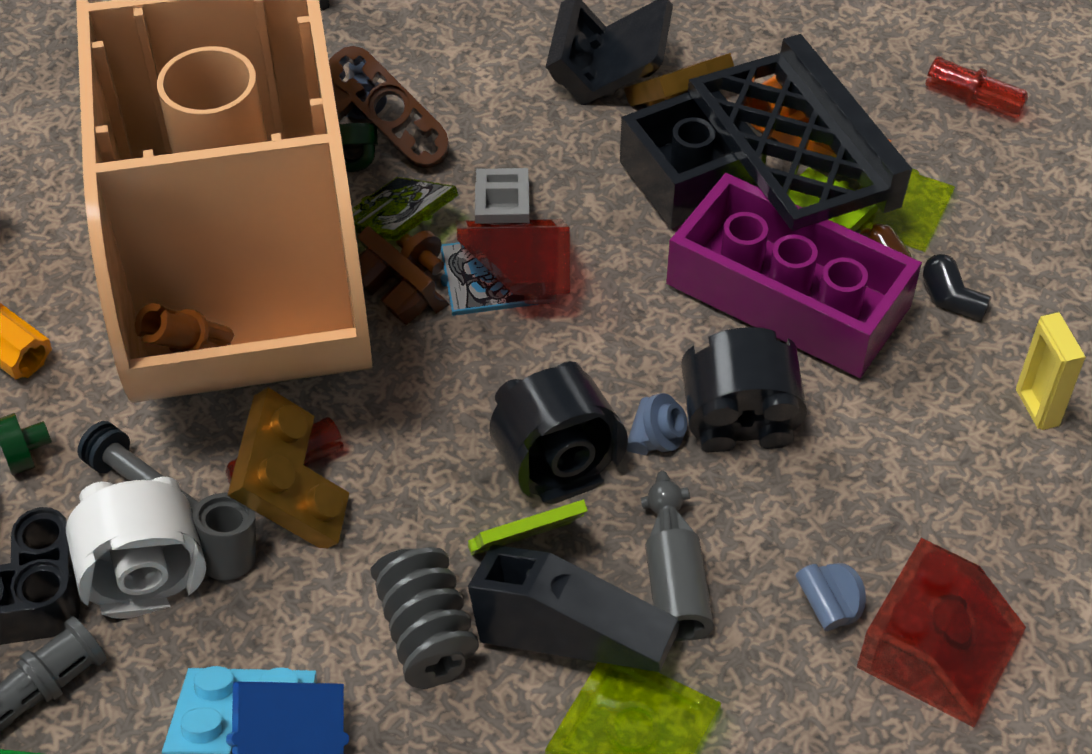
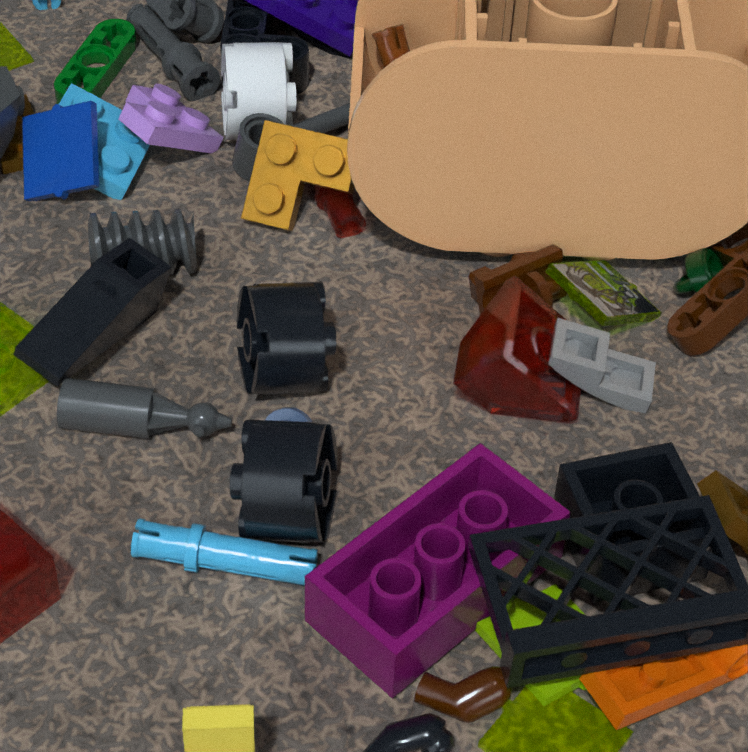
camera: 100 degrees right, 5 degrees down
(191, 634) = (164, 121): none -> lavender plate
(527, 527) = (193, 307): lime piece -> none
(823, 462) = (220, 552): none -> medium azure pin
(833, 593) = (49, 508): sand blue plate -> none

